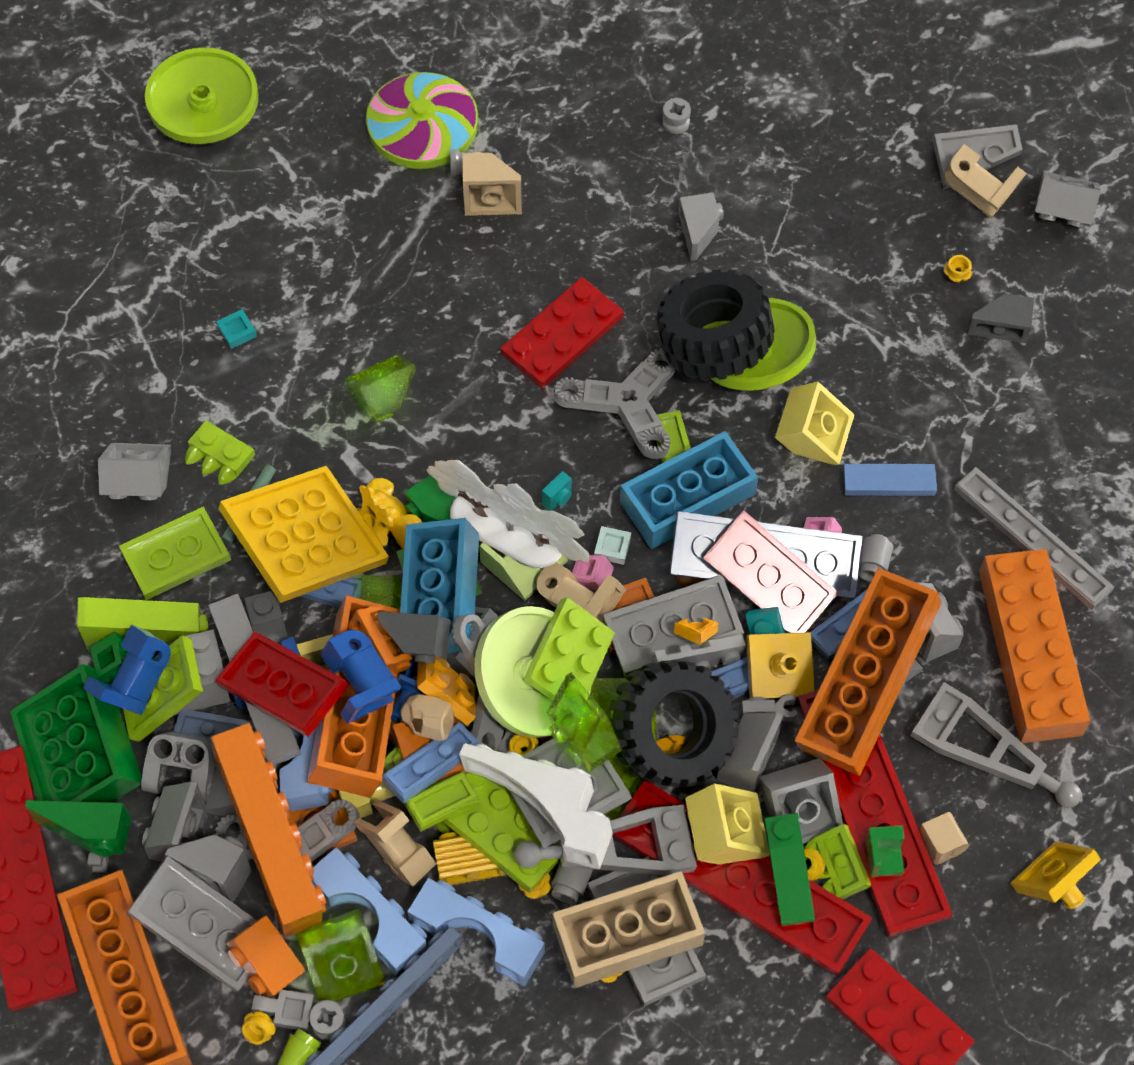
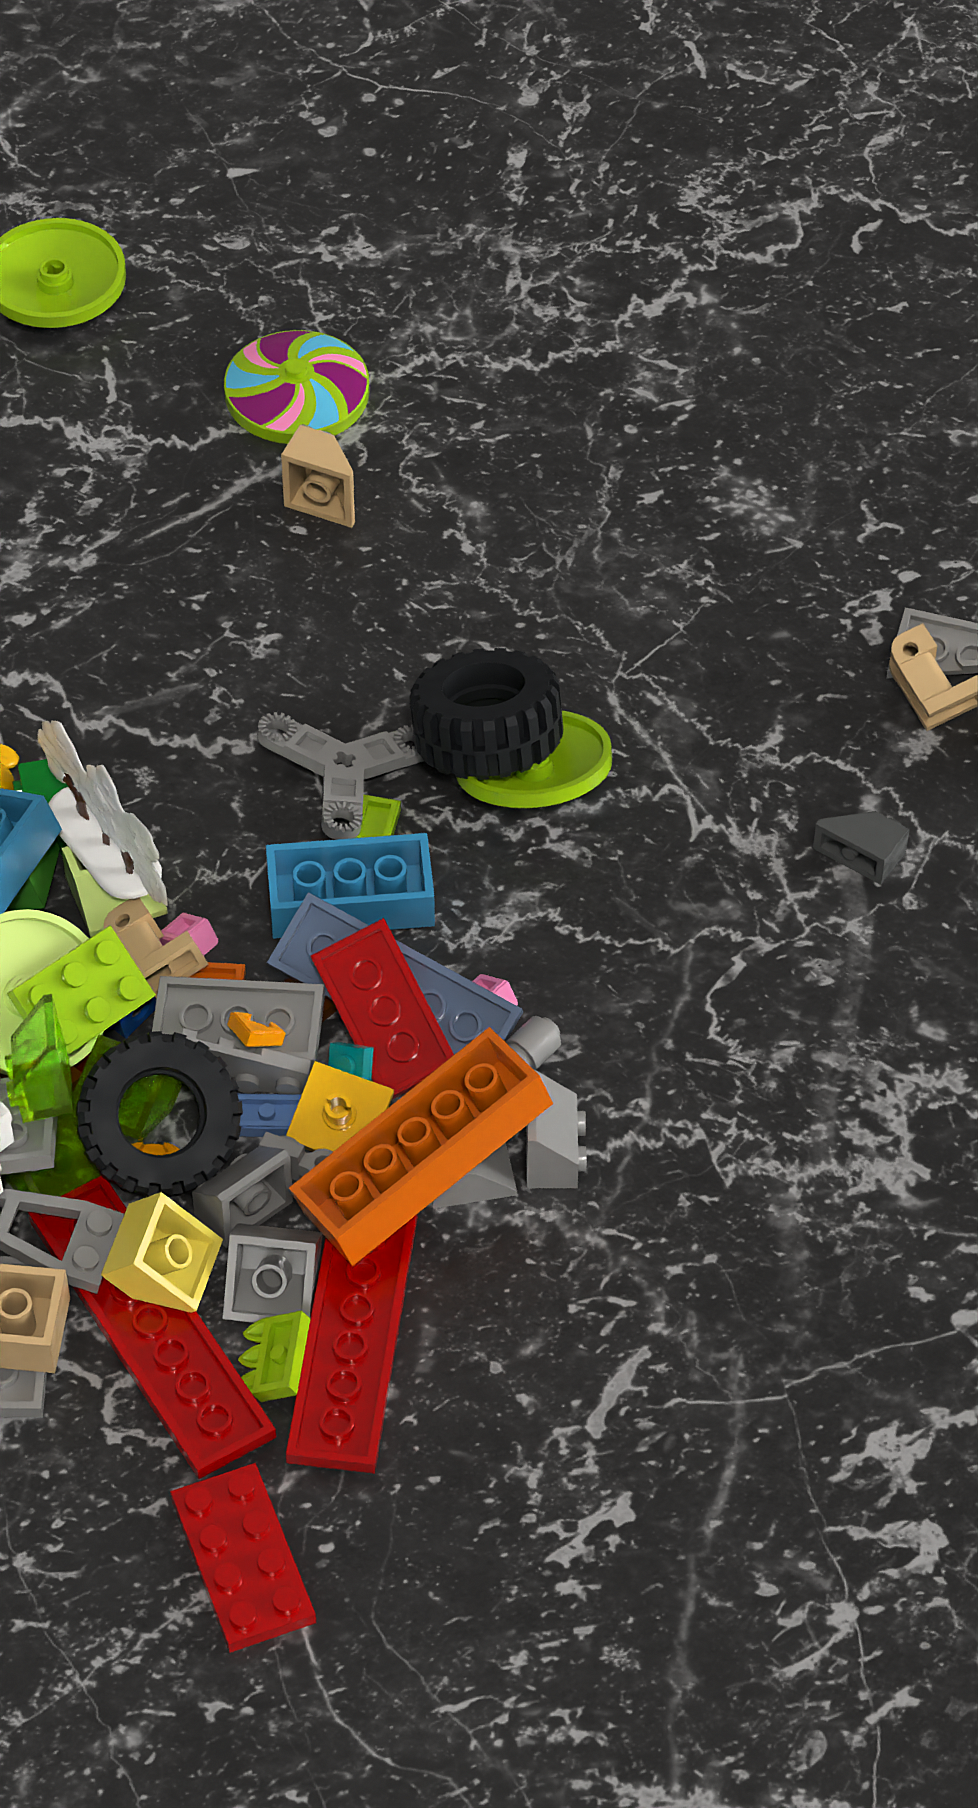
camera: 25 degrees right, 10 degrees down
(382, 386) = (63, 650): clear neon green slope -> none
(557, 492) = (197, 833): teal plate -> none
(562, 332) = (316, 668): red plate -> none
(613, 544) = (228, 914): light aqua plate -> none
(671, 121) = (600, 482): light grey wheel -> none
(699, 221) = (553, 606): light grey slope -> none
(790, 869) = (205, 1327): green slope -> none
(815, 424) = (553, 874): light yellow slope -> none
(817, 864) = (240, 1344): yellow plate -> none
(884, 851) = (331, 1358): green panel -> none
(890, 479) = (609, 970): medium blue tile -> none
(942, 718) = (510, 1247): light grey plate -> none
(943, 838) = (418, 1379): tan piece -> none
(961, 263) = (844, 769): yellow plate -> none
(1032, 535) = (748, 1103): light grey tile -> none
(1034, 646) = (663, 1215): orange brick -> none
(1056, 874) = (527, 1471): yellow tile -> none

